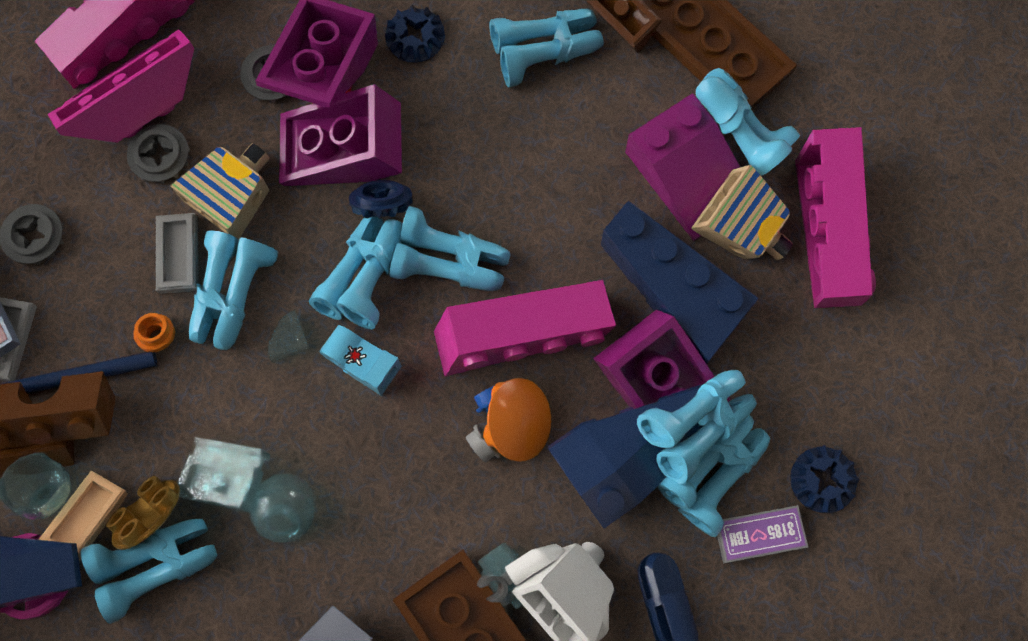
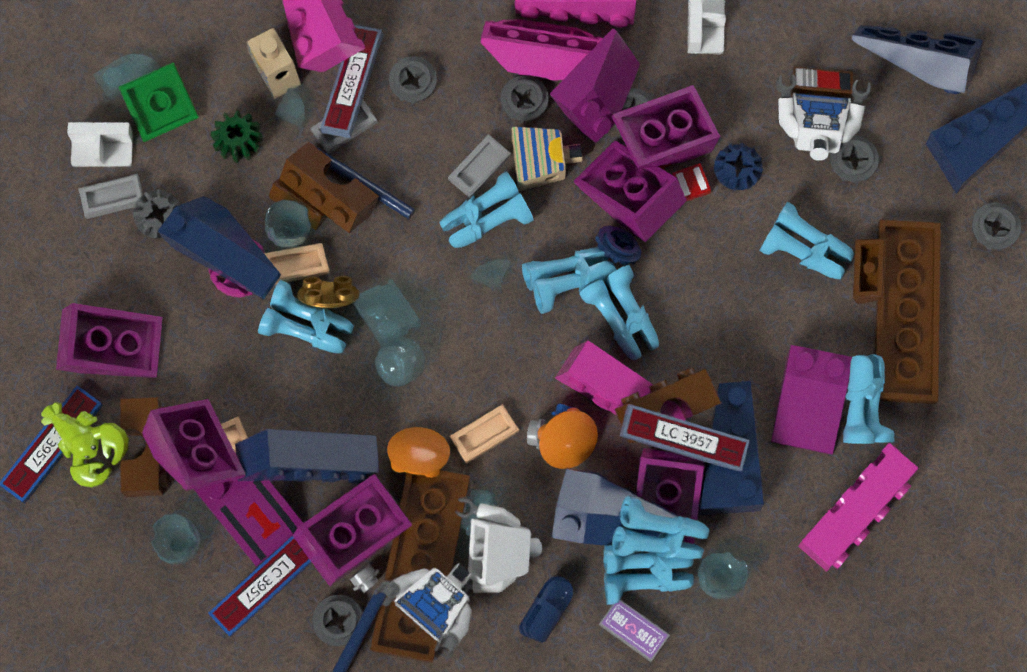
camera: 45 degrees right, 0 degrees up
(146, 325) = (428, 192): orange plate -> none
(215, 75) = (598, 86): none -> magenta slope
(361, 359) = (518, 324): medium azure leg -> none
(389, 577) = (418, 451): none -> orange dish
(391, 80) = (693, 182): none -> tile
(433, 494) = (484, 433): none -> light nougat tile
(569, 326) = (691, 392): none -> reddish brown arch
(632, 308) = (684, 438): none -> tile
(745, 217) = (809, 456): torso -> none
(800, 396) = (712, 580): none -> clear light blue hair
(805, 483) = (691, 650): dark blue gear -> none

